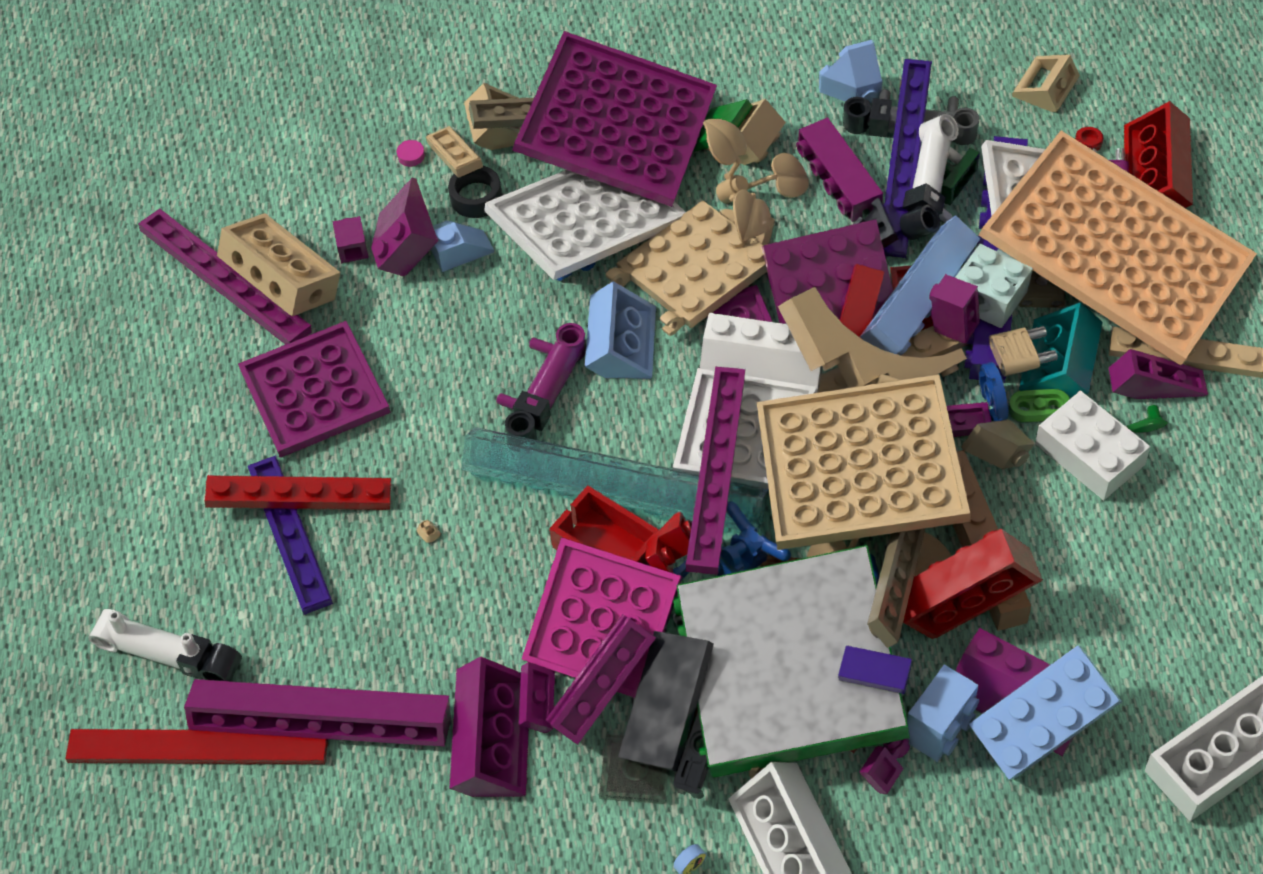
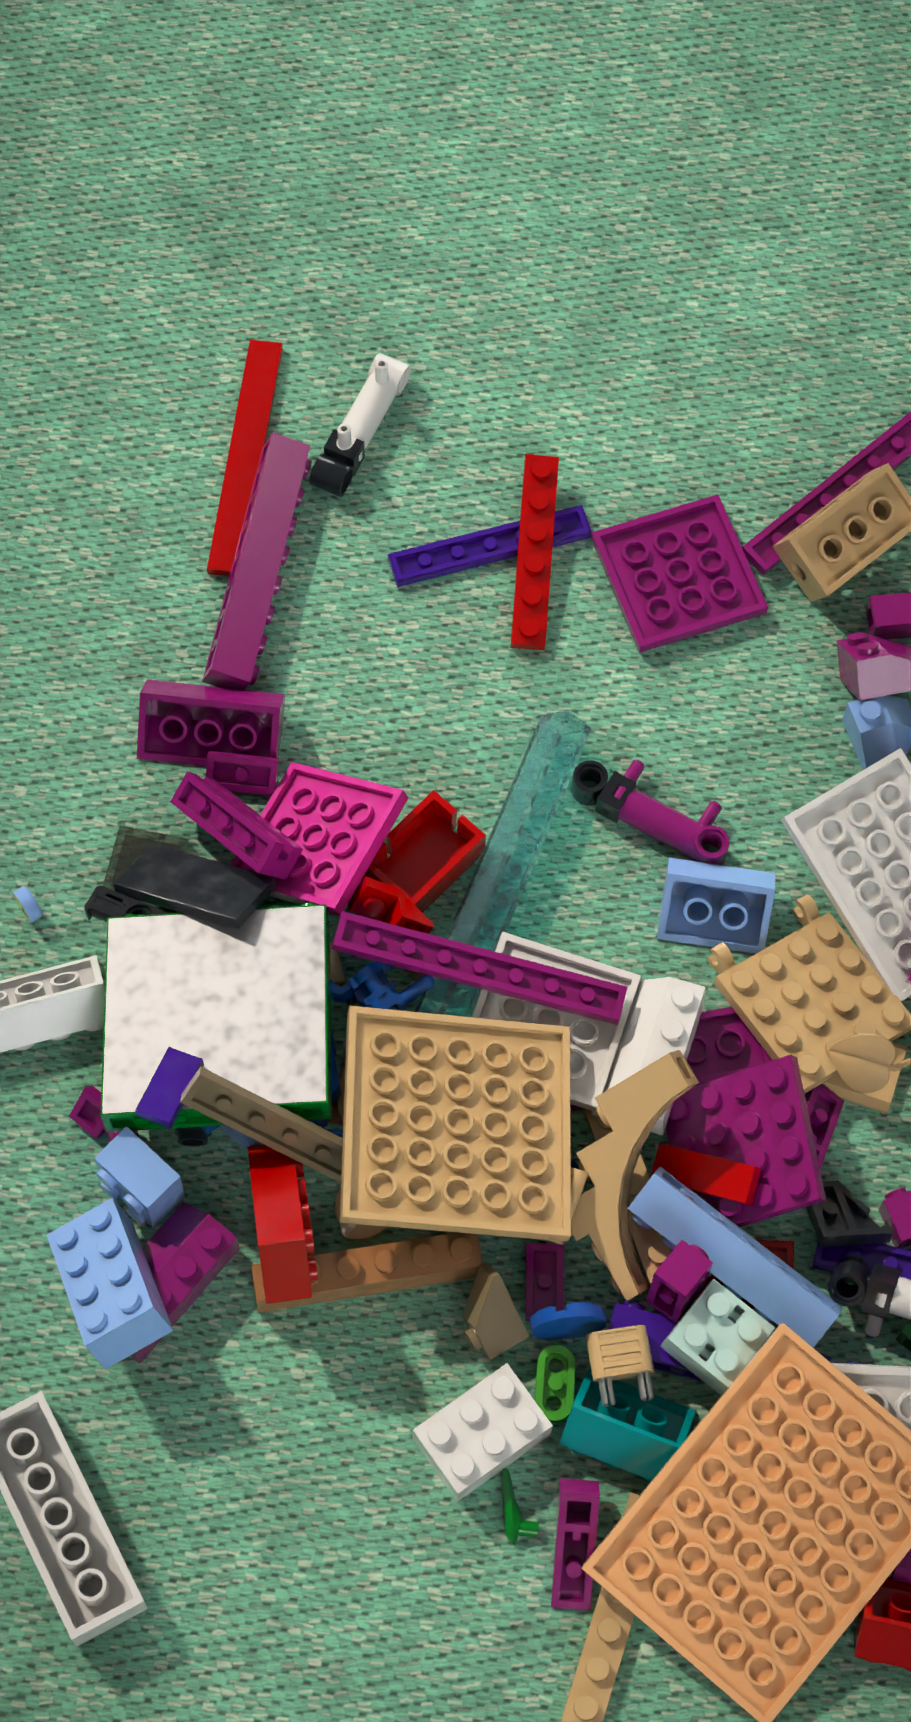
camera: 90 degrees right, 10 degrees up
(428, 531) = (474, 684): tan rock -> none

